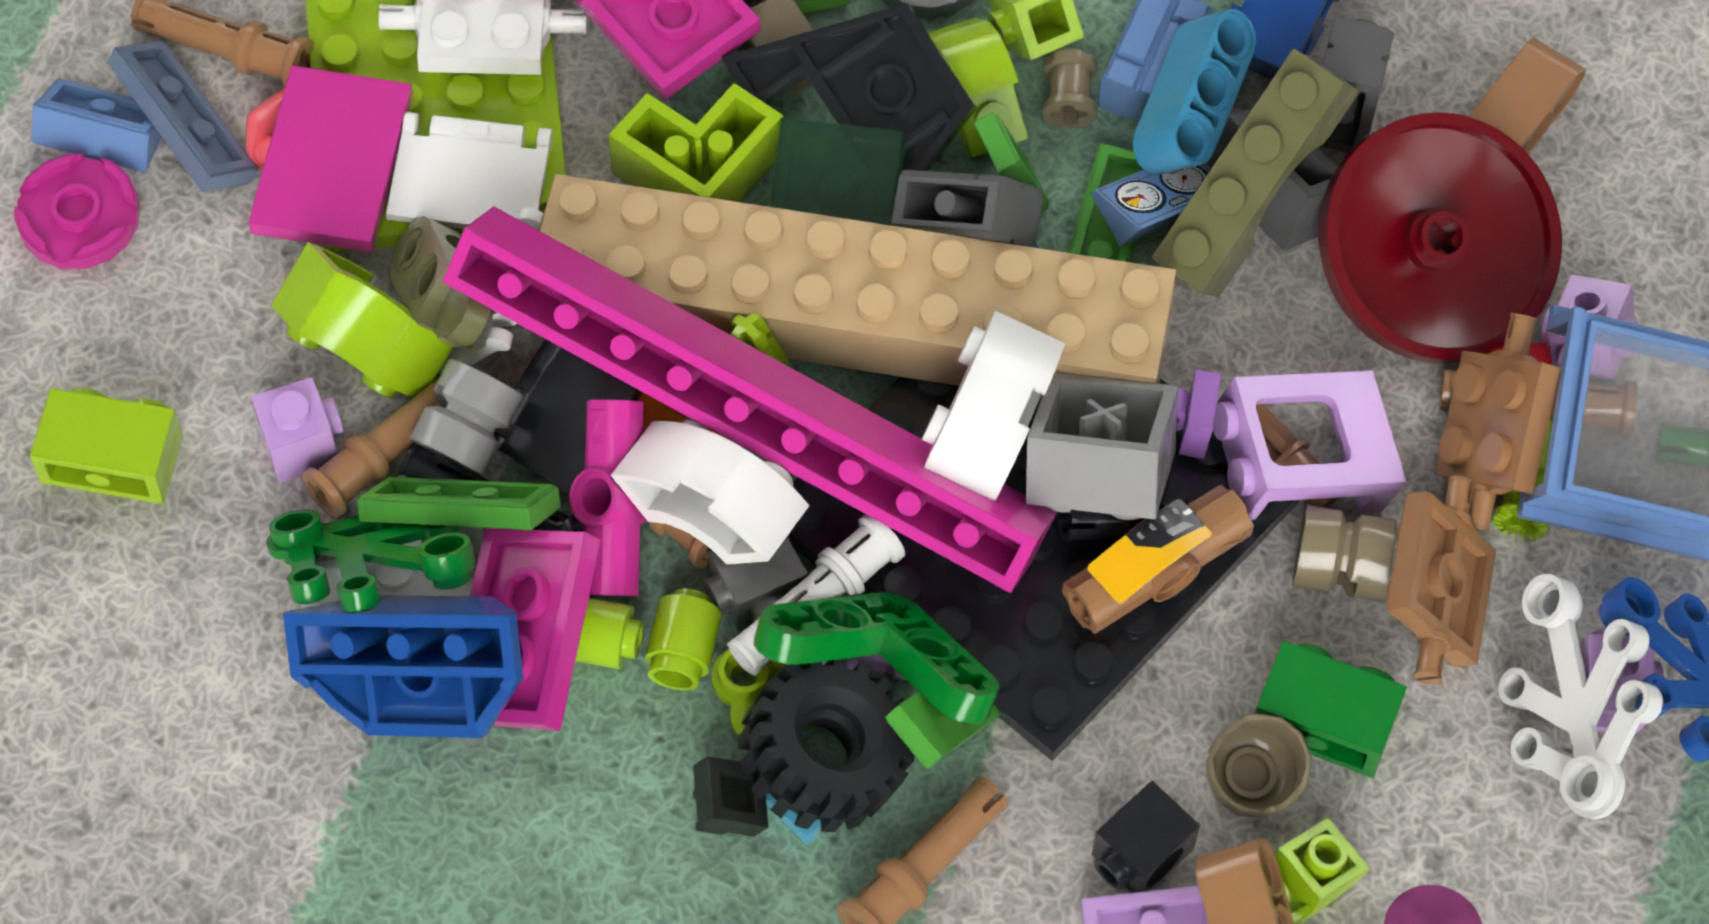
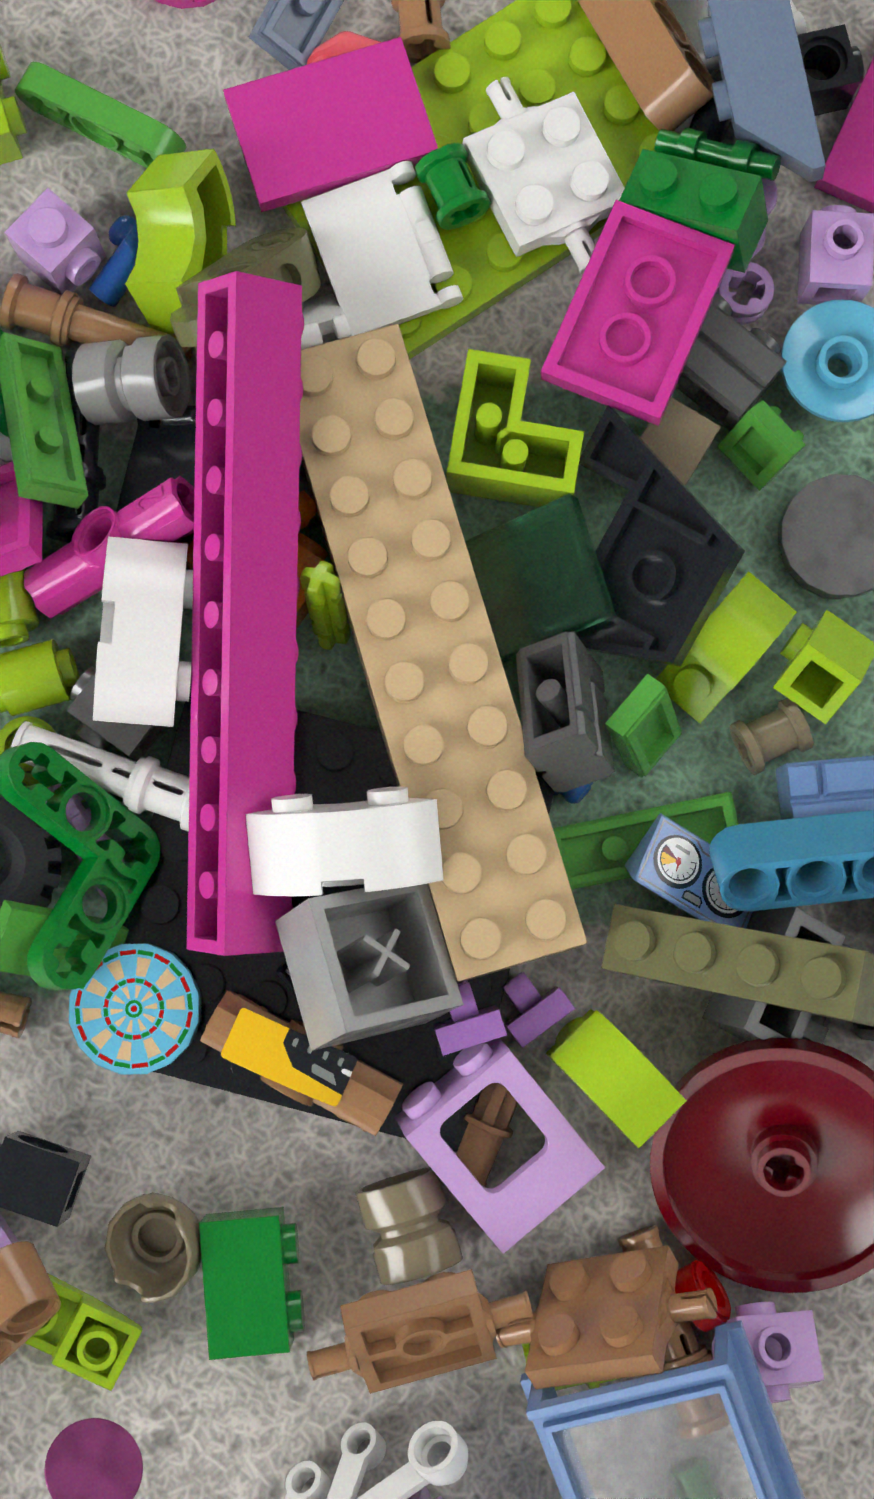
camera: 60 degrees right, 20 degrees up
(197, 344) = (96, 115): none -> bright green beam
(345, 389) = (110, 282): none -> blue arm
(452, 87) = (452, 186): none -> green bush
(1044, 675) = (136, 1010): none -> medium azure tile
(1211, 356) = (536, 1012): none -> medium lavender tile
(1295, 319) = (615, 1076): none -> lime brick

